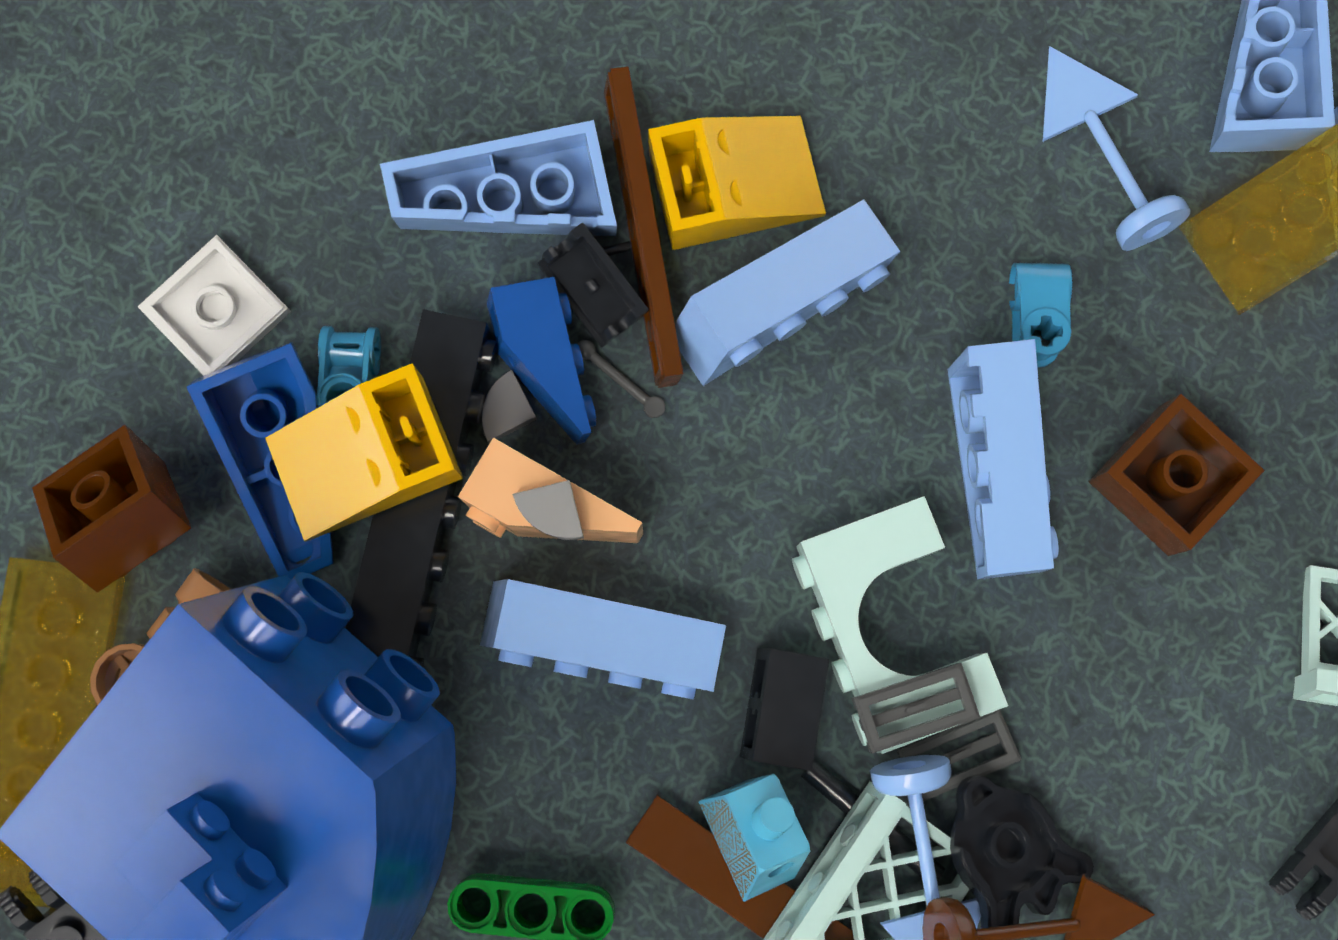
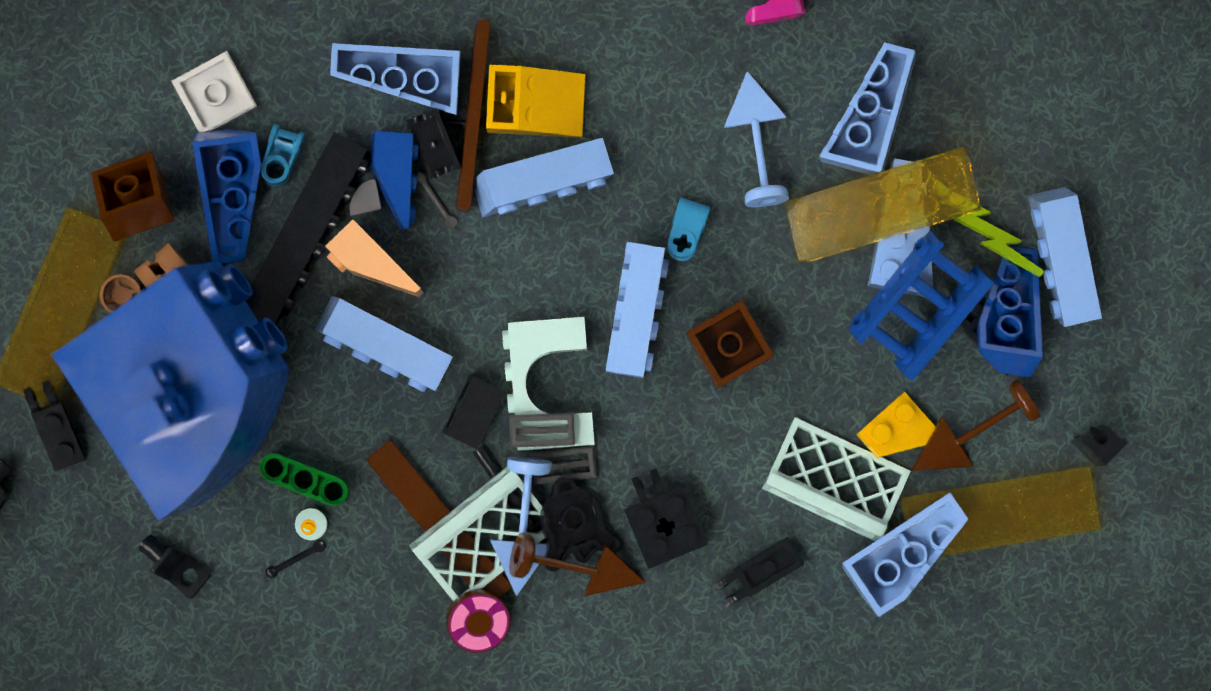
camera: 15 degrees right, 5 degrees up
(363, 453) = (279, 207): yellow slope -> none
(551, 510) = (373, 268): light grey tile -> none
(757, 834) = (434, 472): medium azure torso -> none
(1130, 809) = (672, 506): none -> black hinge

